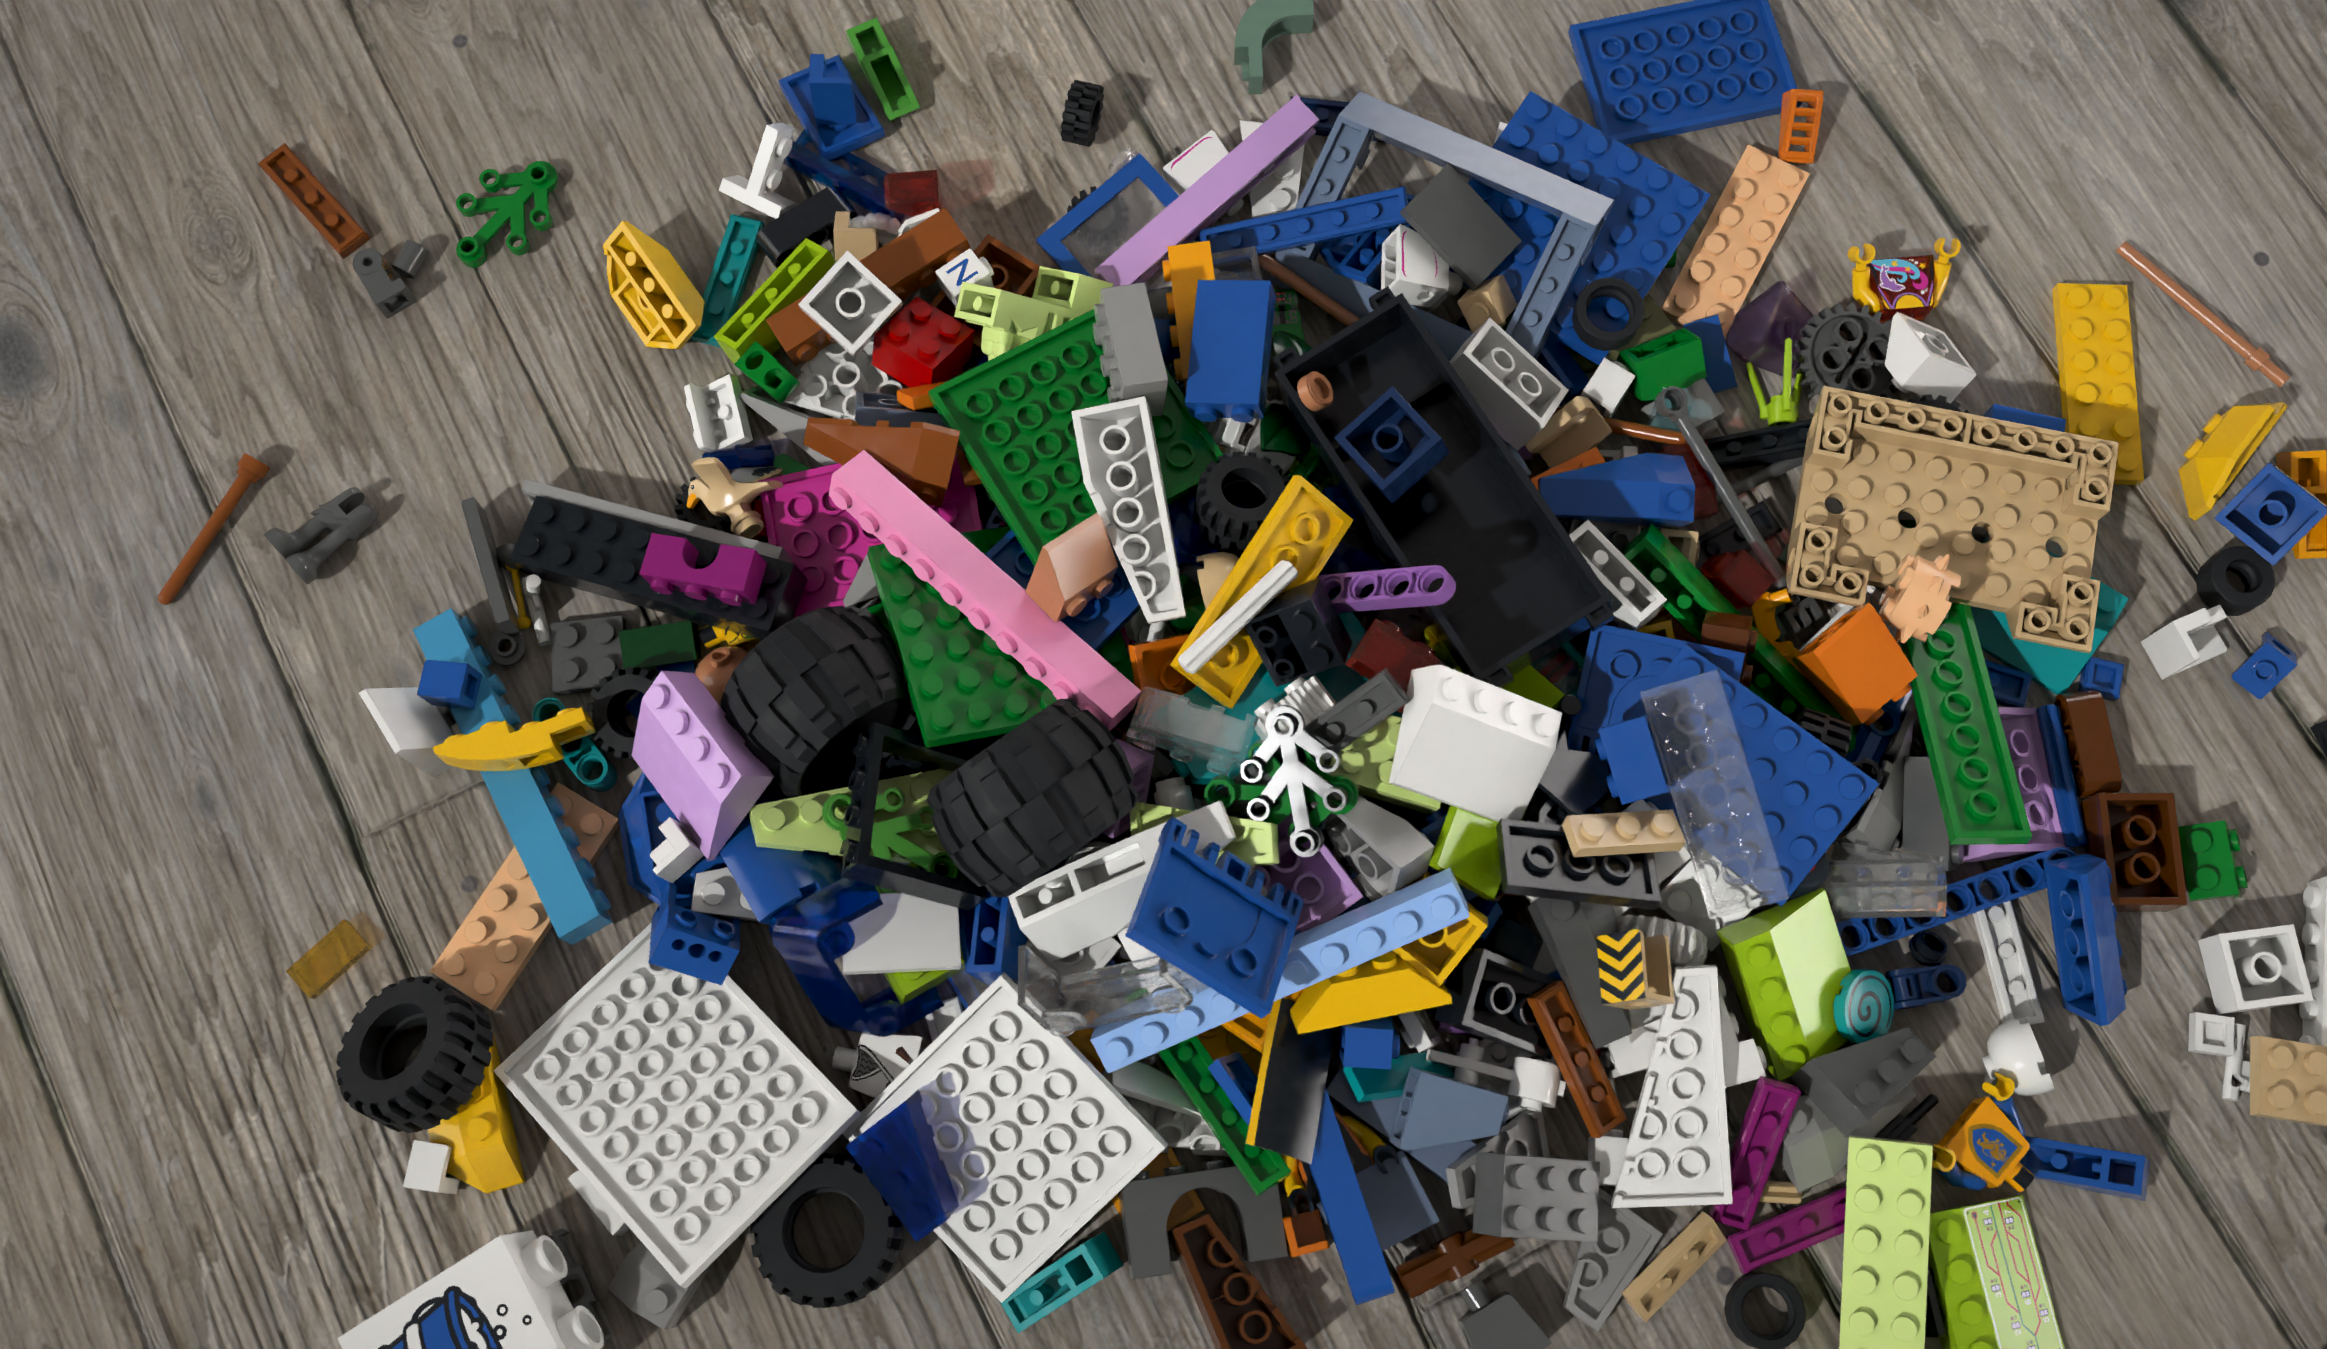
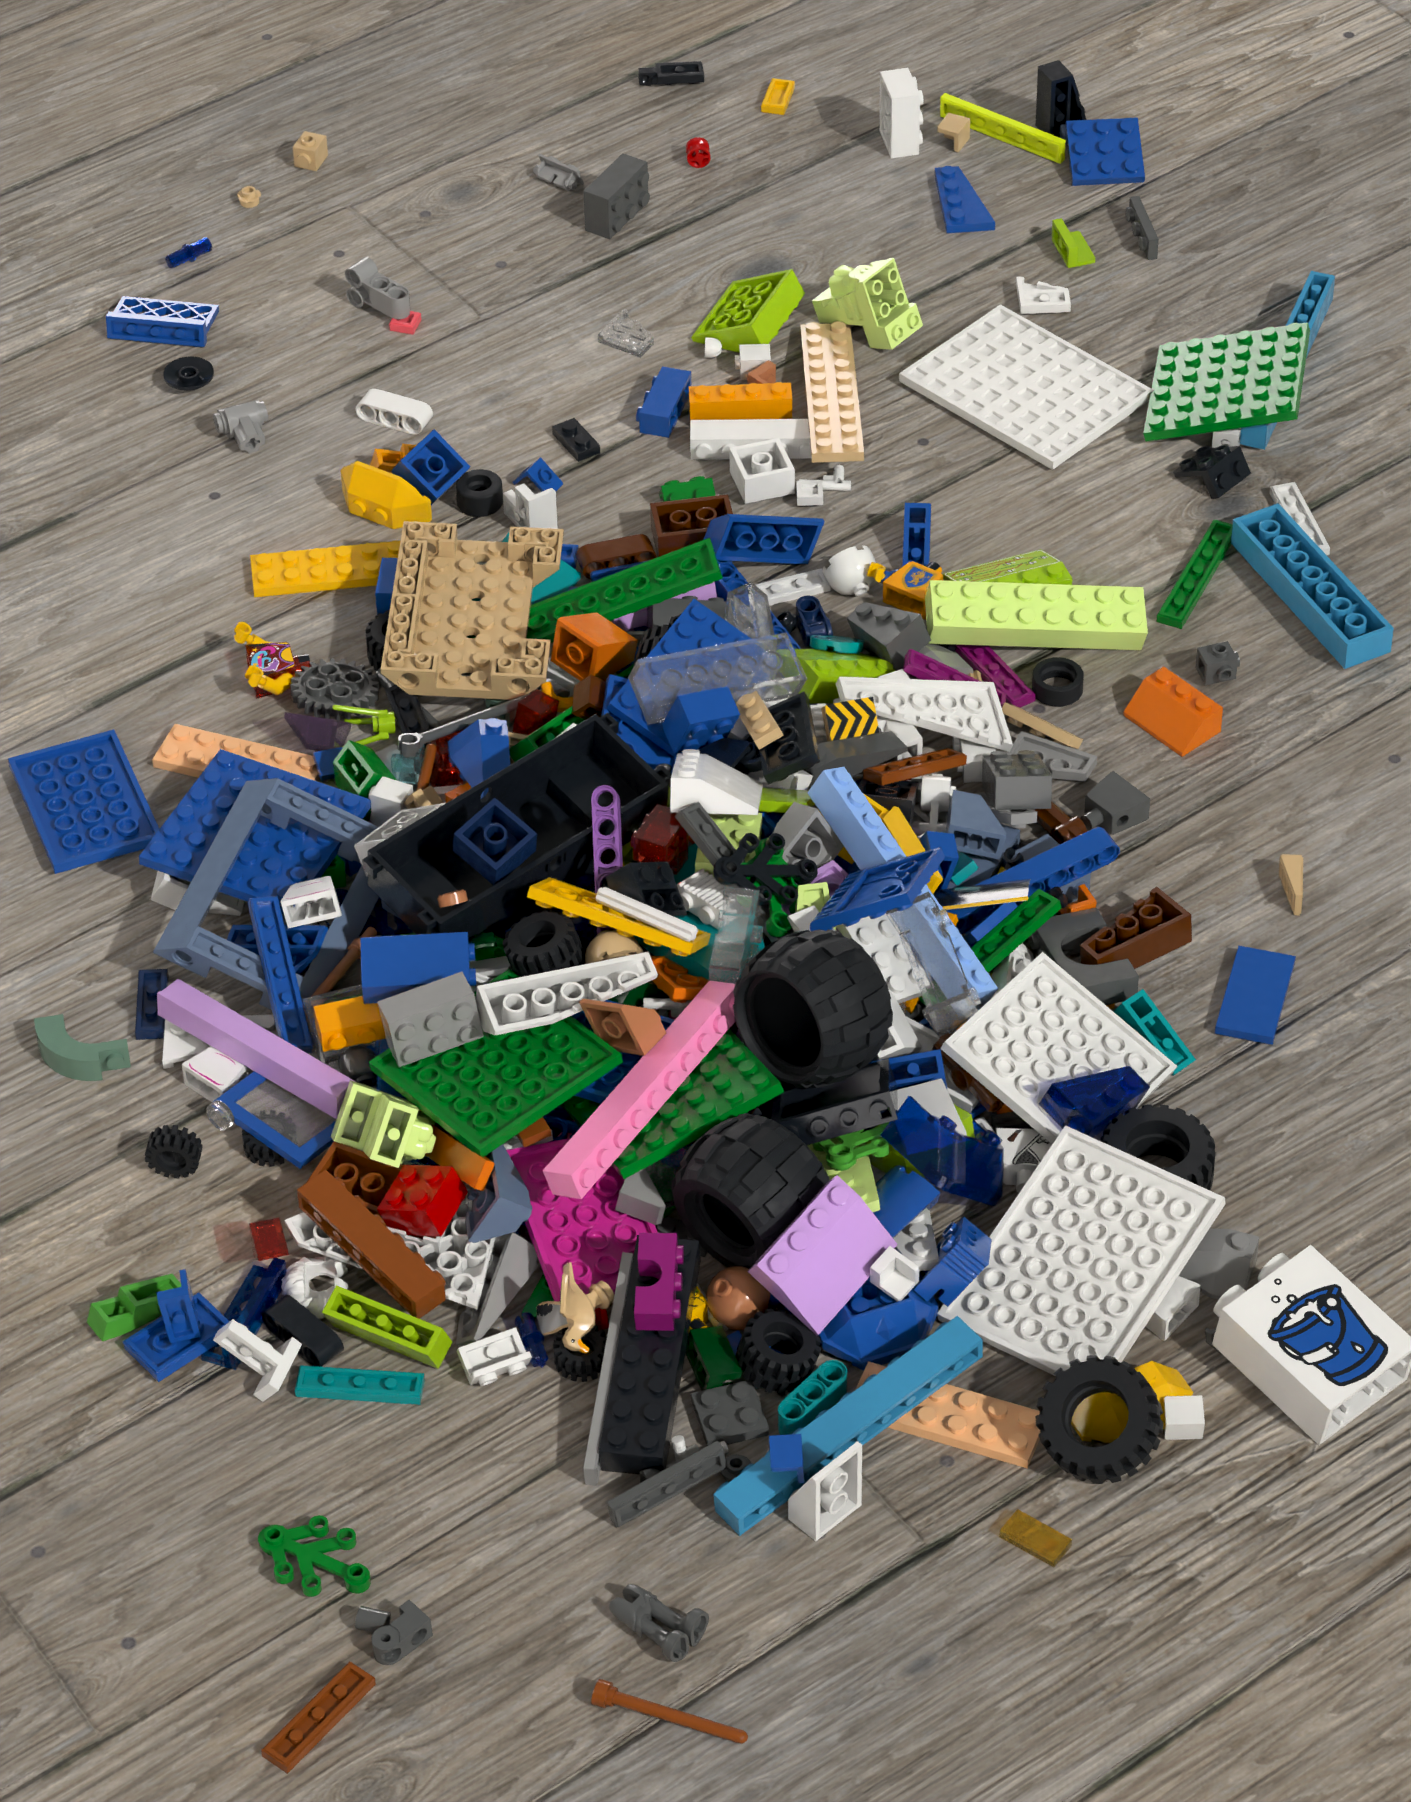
camera: 100 degrees left, 30 degrees down
(504, 749) = (829, 1392): yellow slope -> none
(651, 289) = (391, 1419): yellow wedge -> none
(770, 375) = (459, 1309): green leg -> none
(850, 304) = (404, 1221): white brick -> none
(857, 241) = (321, 1280): tan panel -> none
(914, 455) = (538, 1147): dark orange wedge -> none
(964, 268) = (359, 1176): white brick -> none
(1460, 226) = (276, 870): dark grey tile -> none
(1488, 300) = (334, 860): tan brick -> none
(1614, 289) = (339, 773): black tyre -> none
(1811, 127) = (134, 728): orange slope -> none
(1919, 597) = (541, 604): light nougat brick -> none
(1925, 360) = (336, 642): white slope -> none
(2254, 358) = (299, 493): nougat bar -> none

